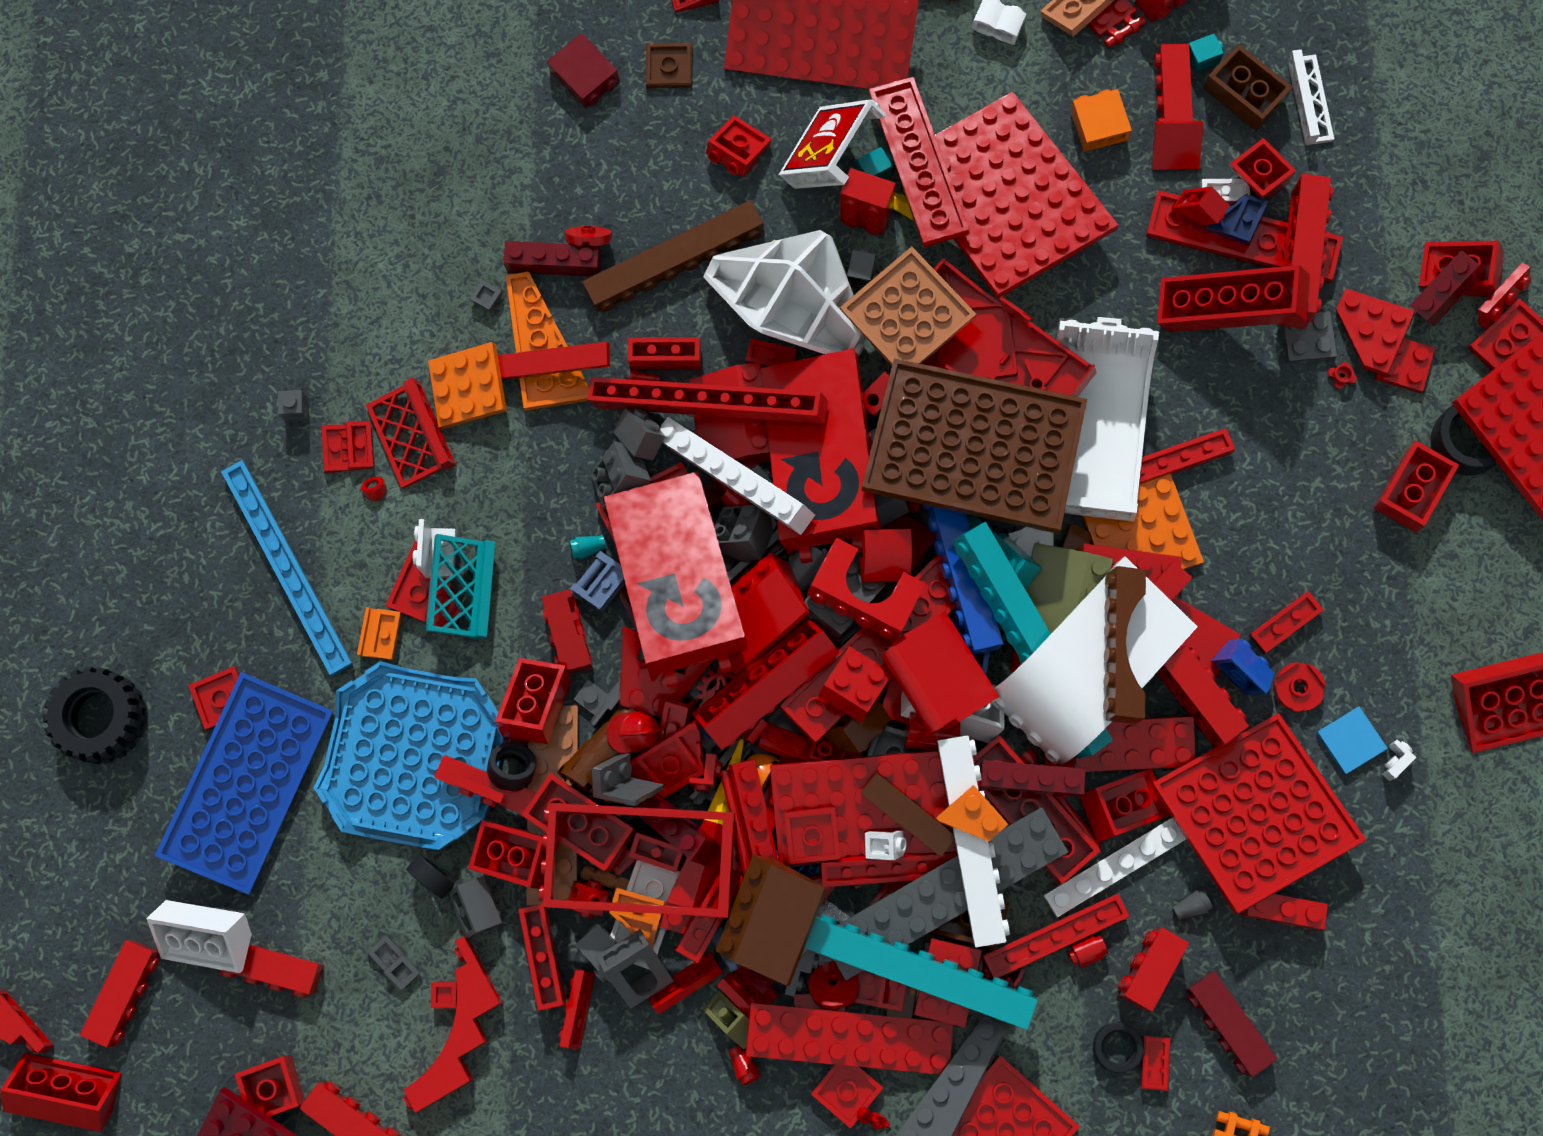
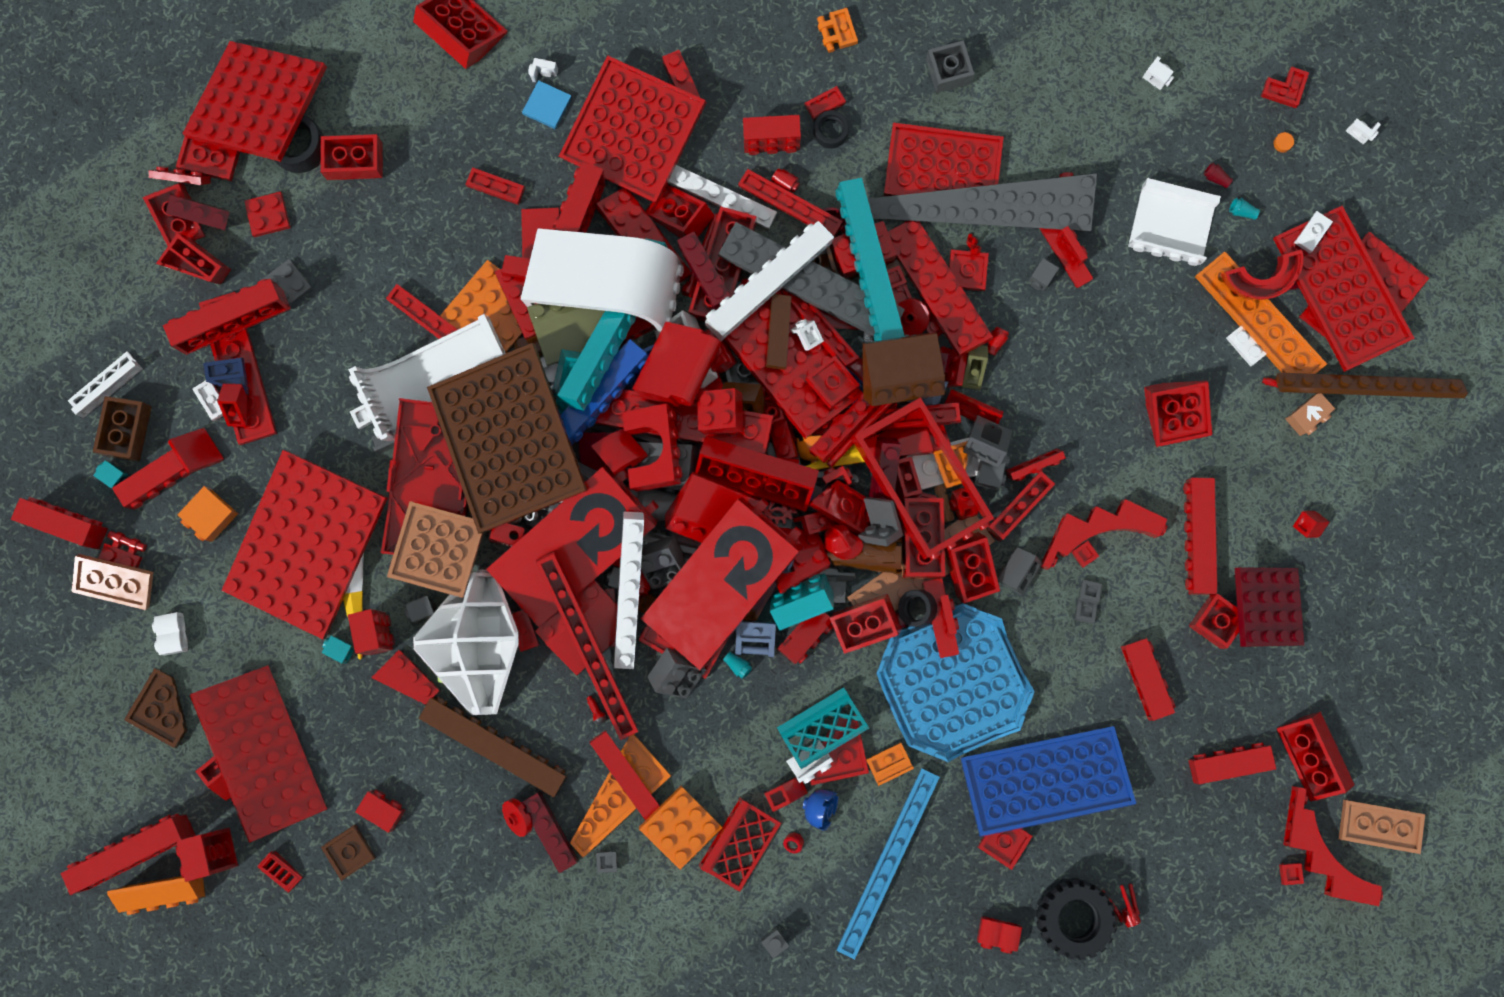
camera: 130 degrees left, 5 degrees up
(59, 775) = (1130, 914): none -> red plant
(138, 630) = (999, 934): none -> red brick
(200, 935) = (1161, 735): white slope -> none
(347, 447) = (777, 883): red slope -> none
(386, 533) = (820, 808): none -> blue cylinder
(425, 504) = (785, 793): none -> red slope
(430, 876) = (1021, 613): black tyre -> none
(583, 71) = (391, 911): dark red brick -> none
(598, 649) = (802, 602): none -> teal brick
(639, 433) = (638, 679): dark grey brick -> none
(664, 353) = (569, 703): red brick -> none
(686, 115) = (380, 810): none -> red brick
(737, 146) = (382, 757): red plate -> none
(800, 216) = (406, 678): none -> red wing
(824, 142) = (343, 687): panel -> none
(919, 163) = (317, 617): plate -> none
(973, 815) = (755, 285): orange wing -> none
(1123, 694) = (549, 279): reddish brown arch -> none
(1193, 905) = (714, 136): dark grey cone -> none
(1231, 1024) = (772, 73): dark red brick -> none
(1234, 299) = (292, 339): red brick -> none
(1244, 667) = (542, 191): blue slope -> none
(1263, 169) = (180, 381): red slope -> none
(1313, 689) = (535, 164): red plate -> none
(1349, 377) = (294, 249): red plate -> none
(1374, 329) = (255, 245): red plate -> none
(1394, 257) = (192, 259): none -> red wedge

